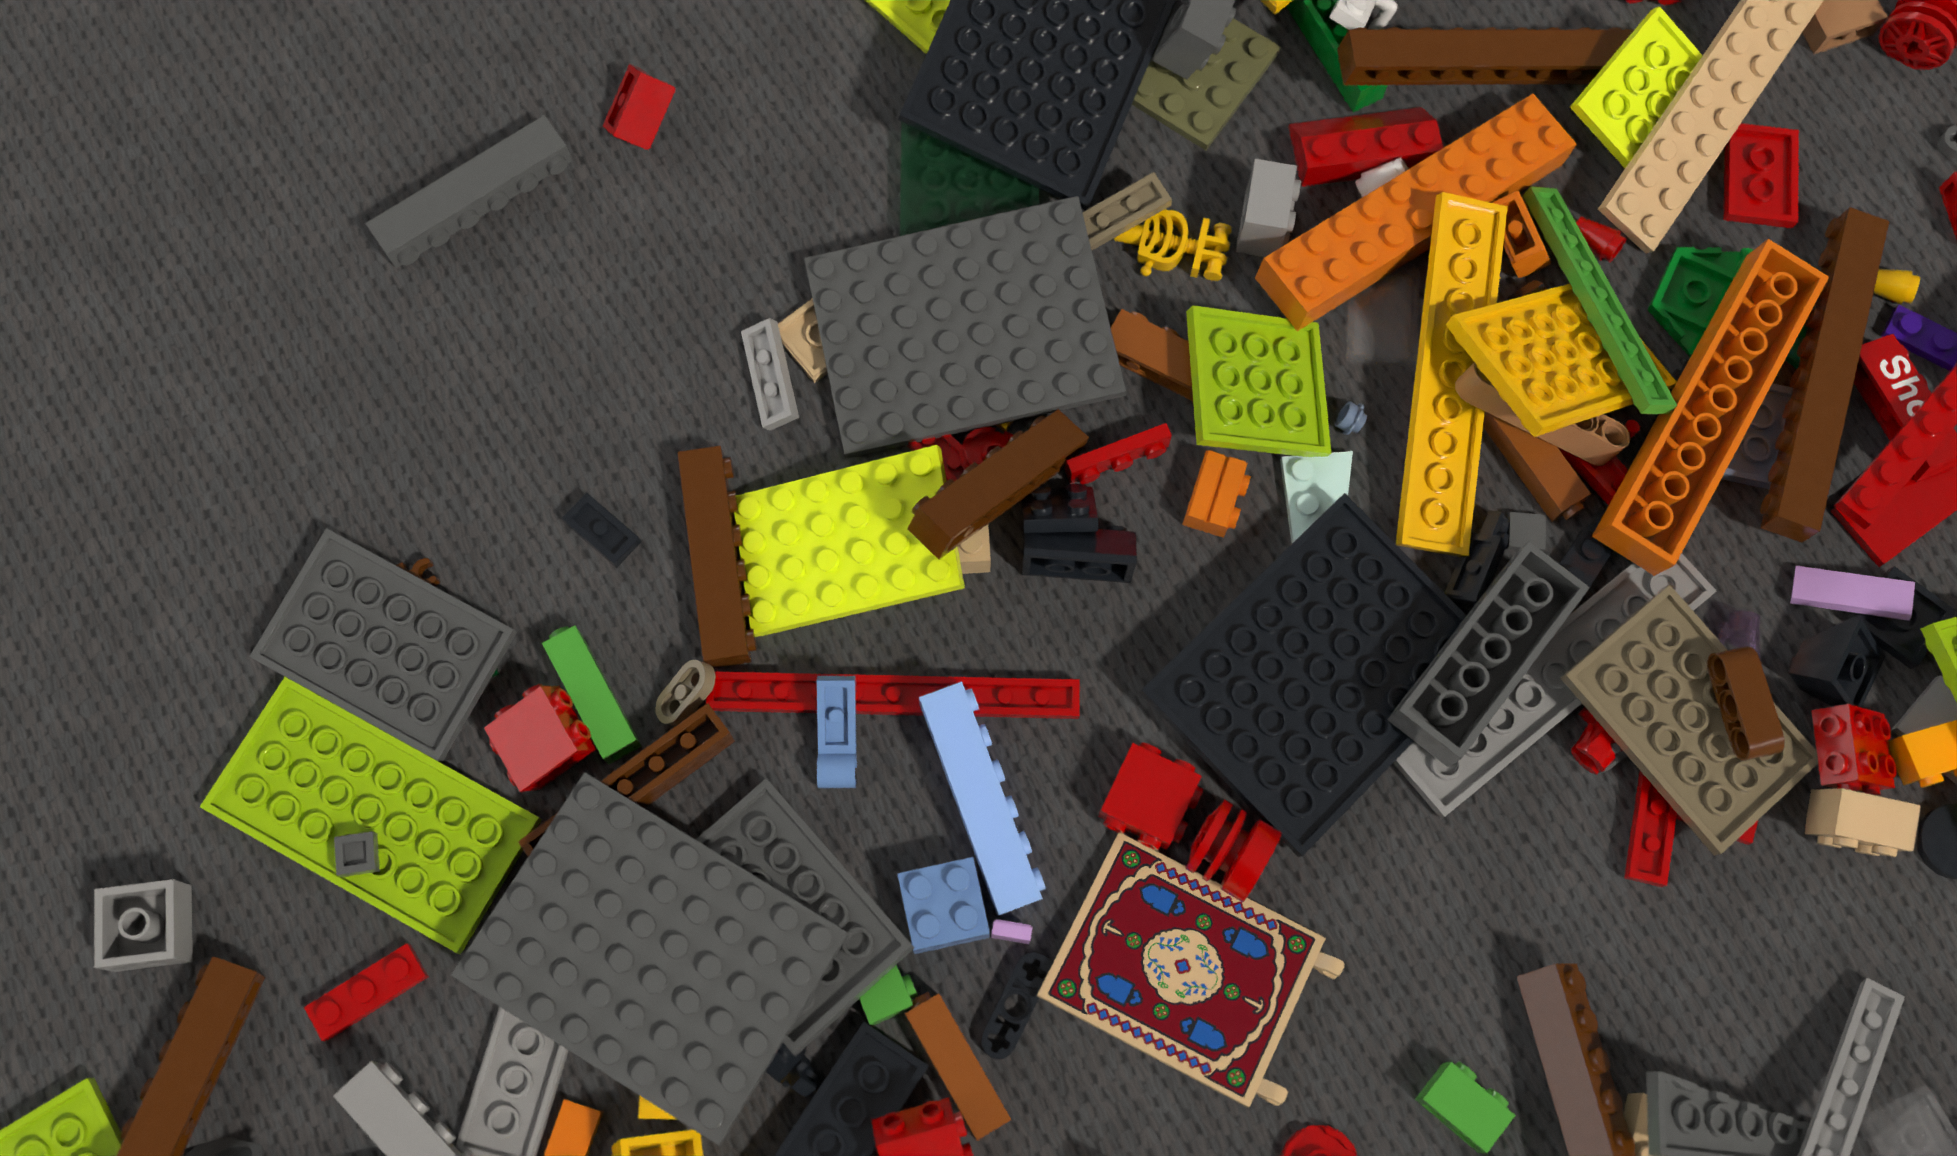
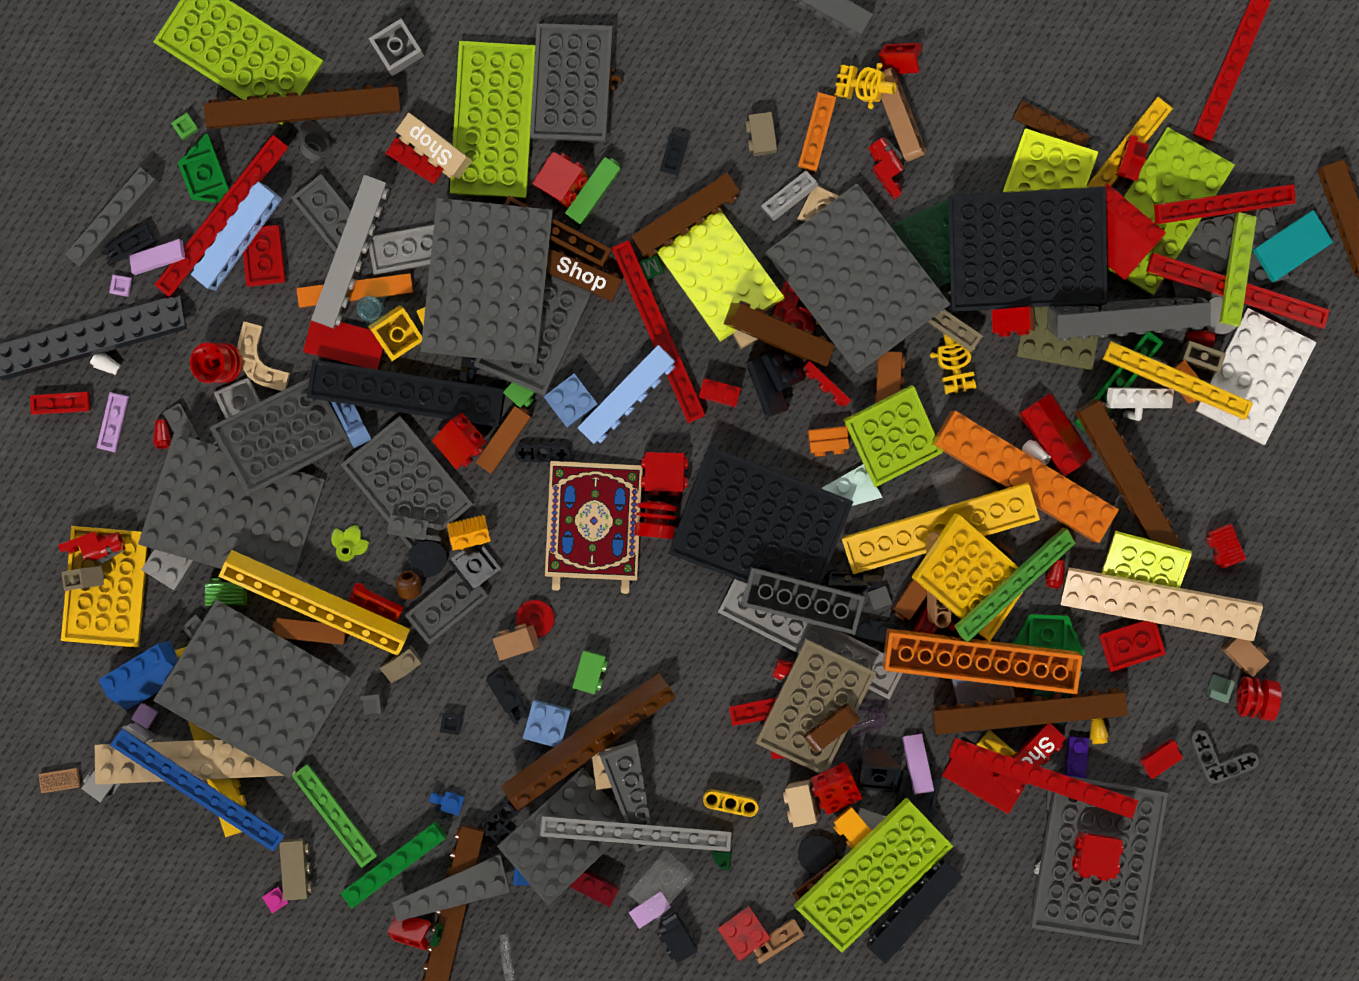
camera: 65 degrees right, 15 degrees up
(355, 941) = (434, 146): none -> tan brick
(356, 854) = (471, 124): dark grey tile -> none
(643, 372) = (762, 134): none -> dark tan brick
(667, 150) = (869, 79): none -> yellow torso
(685, 692) = (616, 235): dark tan plate -> none
(687, 287) = (817, 132): none -> orange plate
(727, 148) = (902, 119): none -> medium nougat beam
(730, 777) = (582, 275): none -> reddish brown brick
(774, 655) = (651, 267): none -> dark green tile
(803, 204) = (888, 165): none -> red plate
(836, 731) = (627, 314): medium blue plate -> none
(1011, 931) = (573, 437): lavender tile -> none
(1051, 636) = (719, 393): none -> red brick
(1149, 121) = (1013, 320): none -> red brick
(1268, 208) = (990, 400): light grey brick -> none
(1351, 418) = (899, 489): sand blue plate -> none
(1522, 238) = (1036, 533): orange brick -> none
(1826, 946) = (737, 809): none -> yellow beam
(1857, 456) = (994, 743): none -> yellow tile
(1885, 76) = (1220, 688): none -> sand green panel
(1913, 1019) = (722, 859): none -> dark green tile

